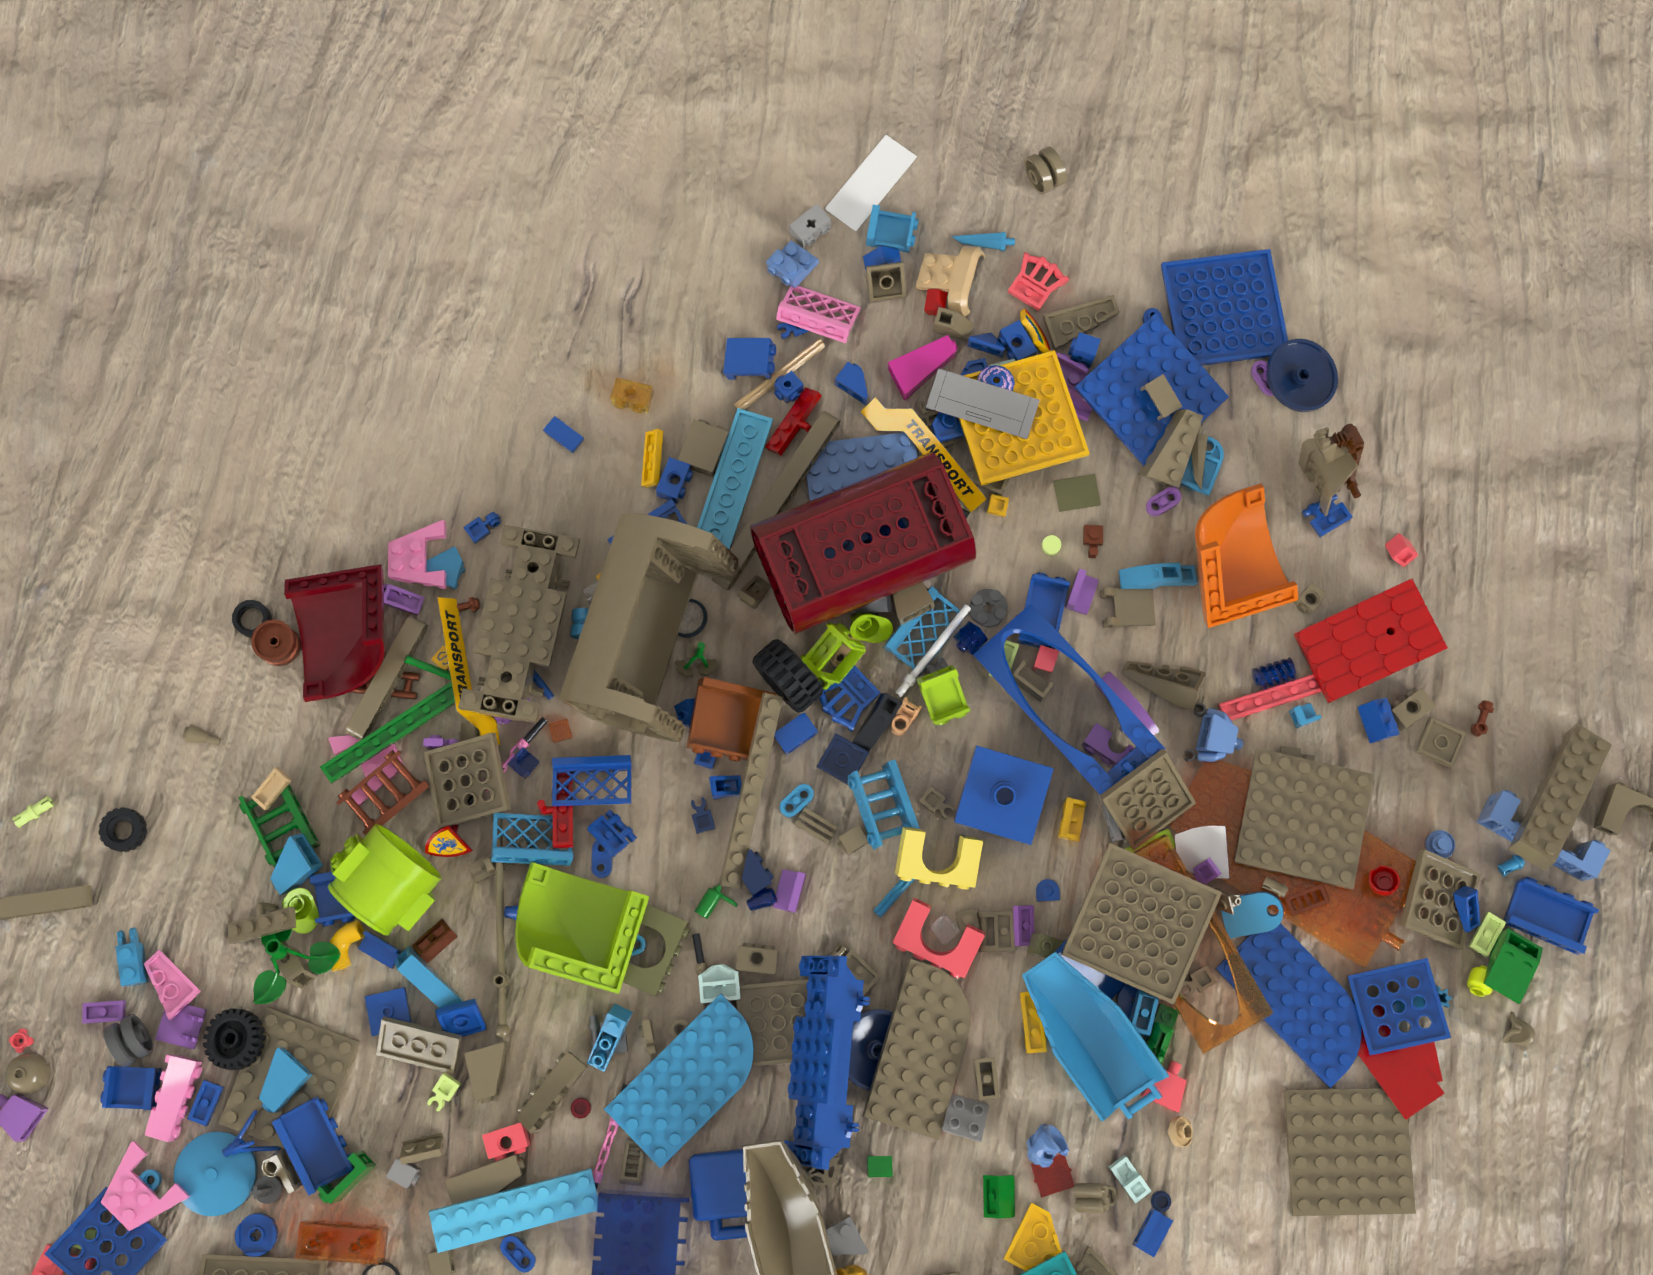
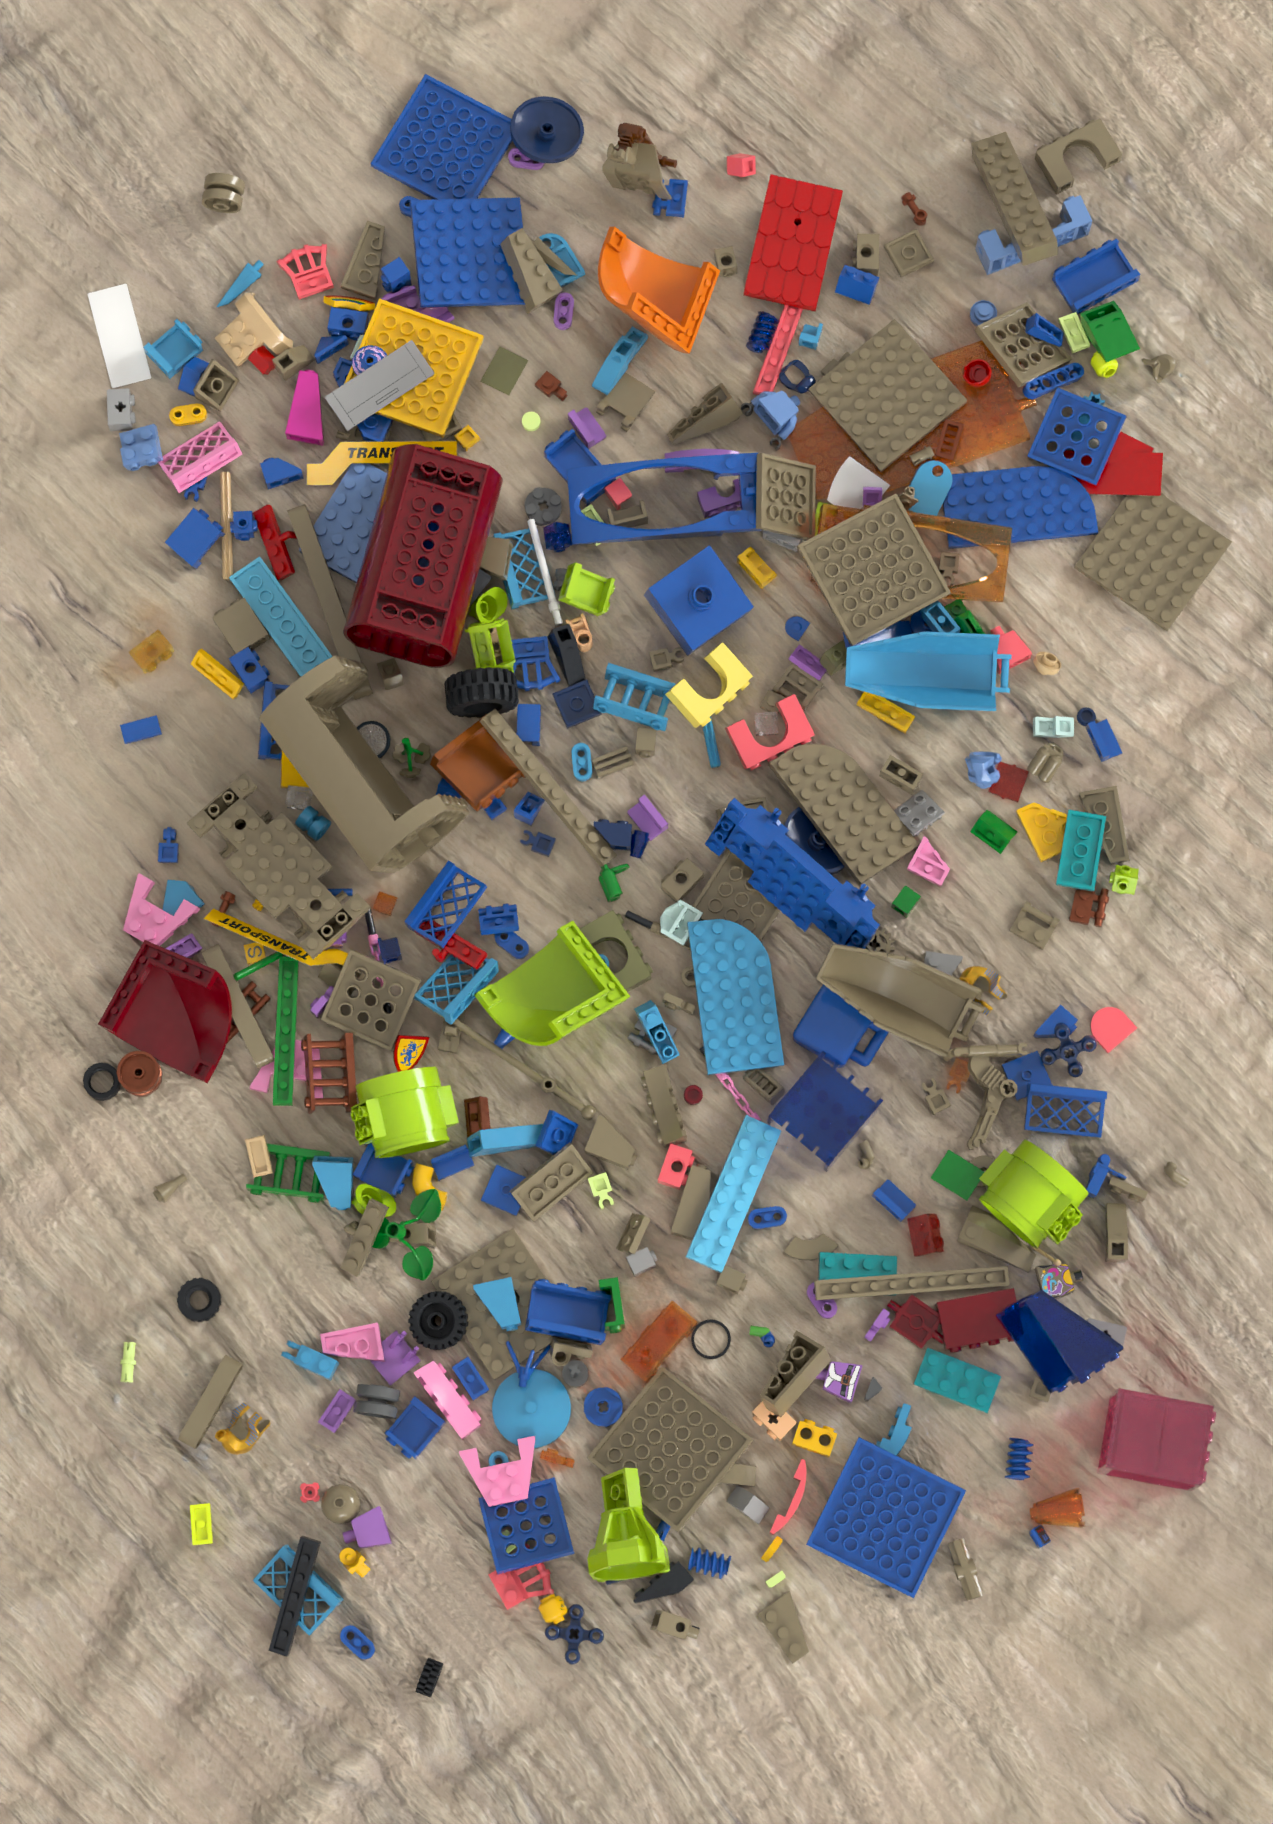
camera: 50 degrees left, 0 degrees up
(27, 948) = (238, 1439): none -> pearl gold piece
(183, 1227) = (553, 1457): none -> clear orange plate
(846, 279) = (188, 416): none -> yellow plate
(927, 1160) = (928, 864): none -> bright pink wing
(1162, 396) = (482, 246): dark tan panel -> none
(1256, 741) = (804, 384): none -> dark blue piece
(1431, 947) = (1052, 378): none -> blue beam
(1510, 865) = (1037, 276): dark azure pin -> none

